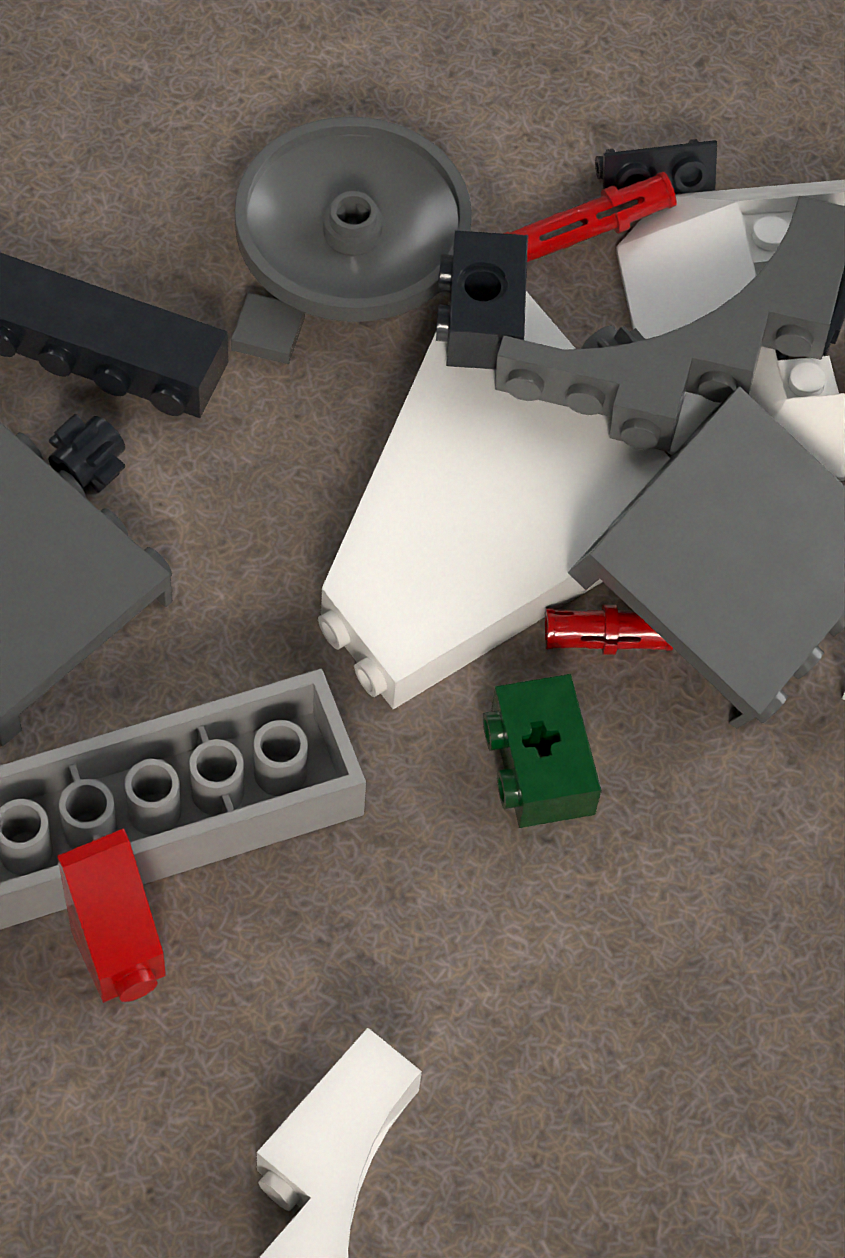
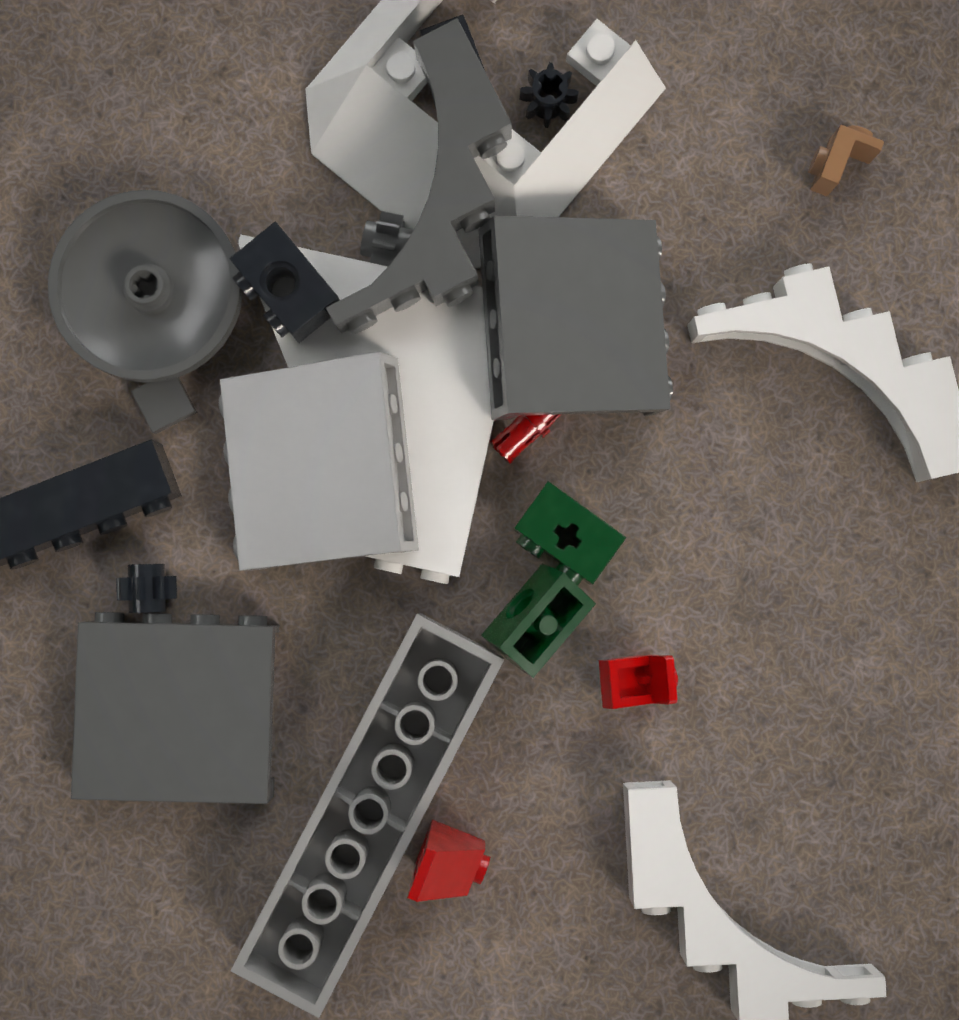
camera: 40 degrees left, 25 degrees up
(365, 472) = (318, 462): none -> light grey panel
(436, 792) = (538, 619): none -> dark green brick
(479, 948) = (638, 681): none -> red bracket
(651, 196) = (283, 149): red pin -> none
(687, 165) = (298, 63): black hinge -> none

